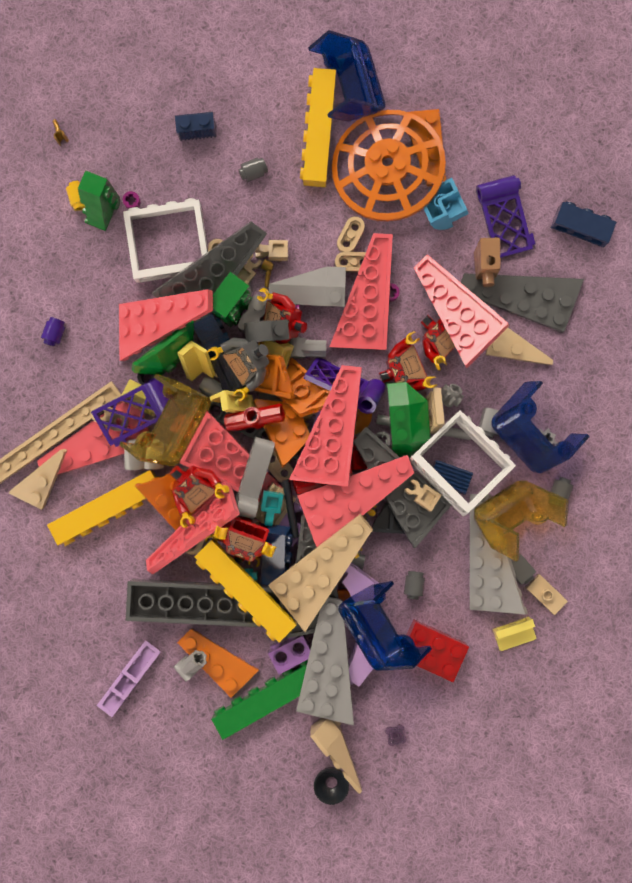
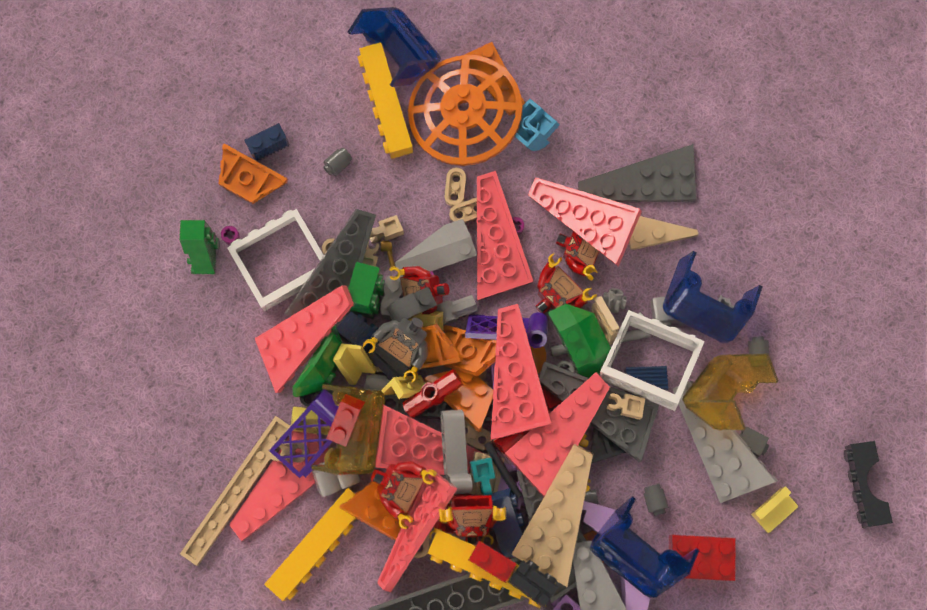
camera: 20 degrees left, 10 degrees down
(38, 485) = (240, 547): tan wing -> none
(53, 331) = (199, 389): dark purple brick -> none
(59, 135) = (136, 199): pearl gold hand -> none
(73, 195) = (174, 250): yellow brick -> none
(166, 151) = (246, 176): none -> orange wing
(166, 413) = (345, 420): none -> brick
(246, 588) = (492, 561): none -> red brick
(275, 620) = (533, 583): none -> black brick
(487, 260) = (595, 160): medium nougat torso -> none
(503, 191) = (582, 93): dark purple piece -> none
(546, 594) = (788, 458): tan plate -> none
(583, 224) = (671, 94): dark blue brick -> none
(609, 621) = (871, 509): none -> black arch

